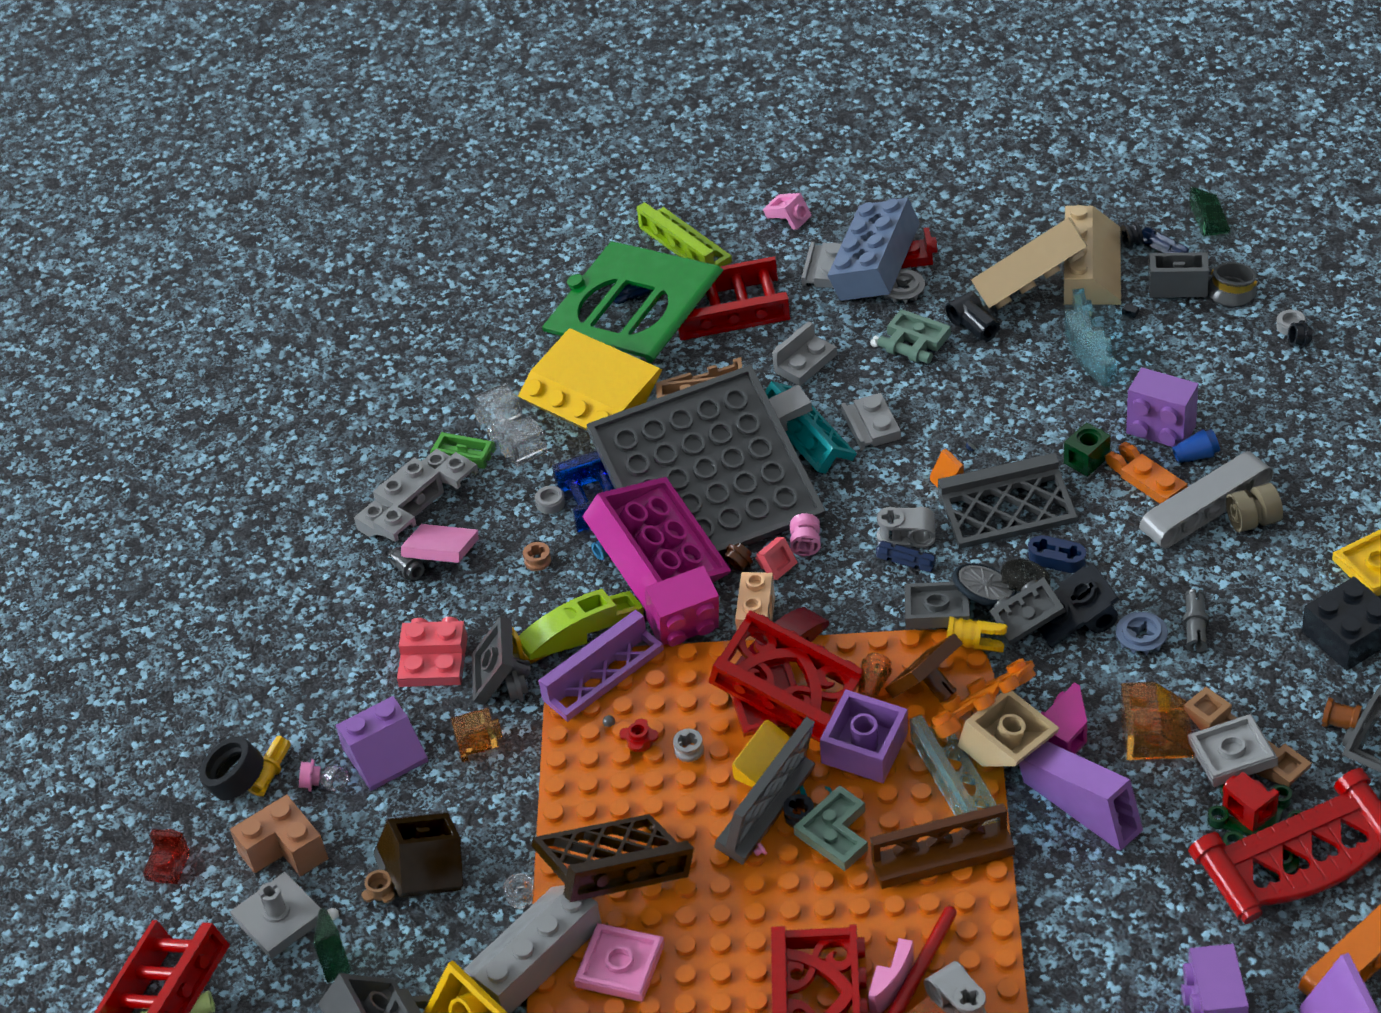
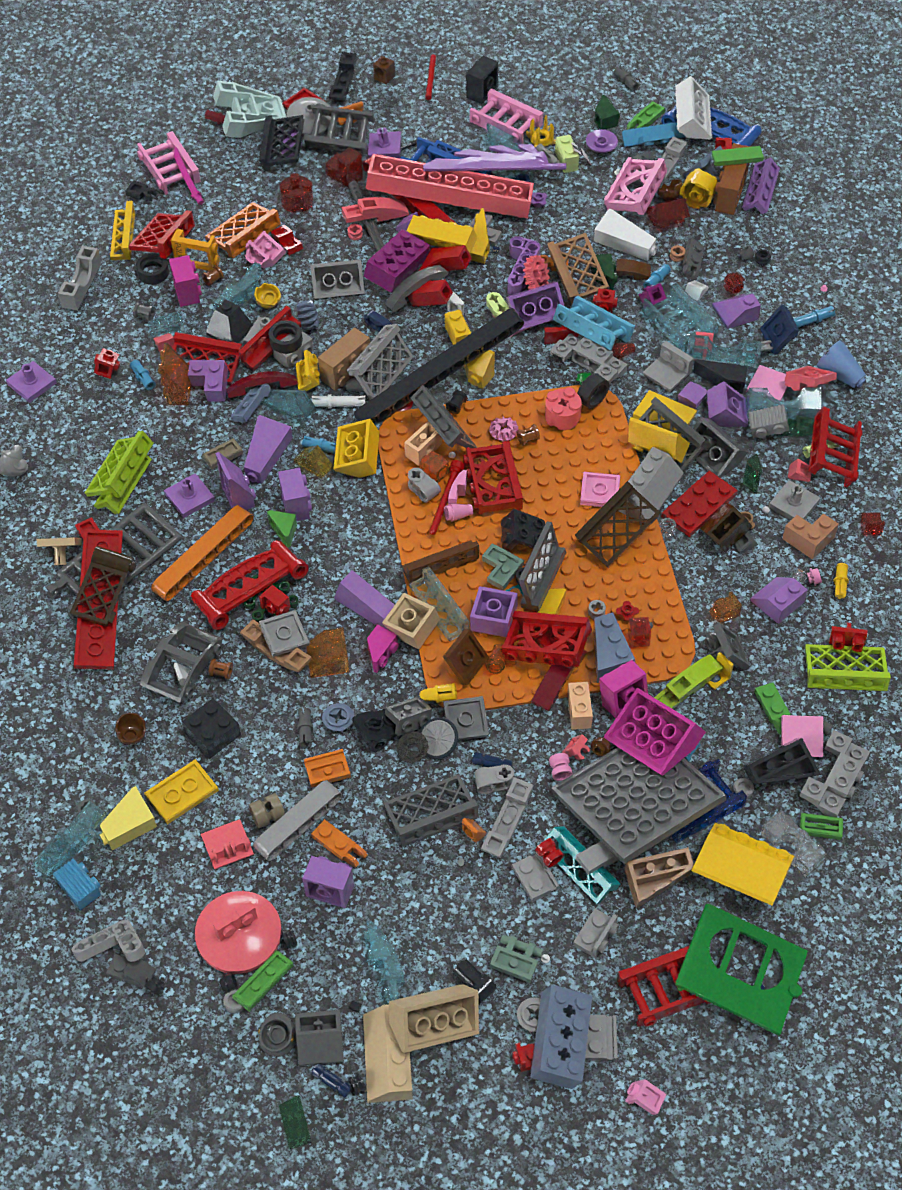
camera: 165 degrees right, 10 degrees up
(240, 777) = (866, 561): black tyre -> none
(240, 975) = (799, 471): none -> coral slope
(305, 676) = (848, 637): none -> red hips
(338, 615) = (847, 678): none -> lime fence
(432, 652) = (775, 662): coral plate -> none
(444, 931) = (699, 503): none -> red plate
(461, 594) = (772, 704): none -> bright green hinge
(490, 503) = (782, 763): none -> black wedge
(536, 548) = (737, 735): nougat bush -> none
(594, 661) = (668, 655): medium lavender fence -> none
(631, 691) = (639, 632): none -> clear red brick
(679, 236) = (730, 1050): lime fence -> none
(685, 666) = (609, 645): none -> sand blue wedge
(785, 877) = (520, 528): none -> black bracket
(846, 427) = (549, 852): none -> red wheel
(886, 939) = (457, 511): none -> bright pink cone
(902, 478) = (508, 818): none -> light grey slope
(981, 696) = (425, 640): orange plant -> none
(1057, 553) = (394, 772): dark blue beam -> none
(1086, 449) = (383, 848): dark green brick -> none
(1161, 562) = (327, 766): none -> orange plate
(1197, 447) = (298, 866): blue cone -> none
(1218, 371) = (289, 937): none -> black bush
(1252, 966) = (283, 524): none -> bright green slope
(1253, 335) = (262, 980): none -> bright green tile
(1290, 382) = (238, 932): none -> coral bracket
(1313, 482) = (227, 844): none -> coral hinge

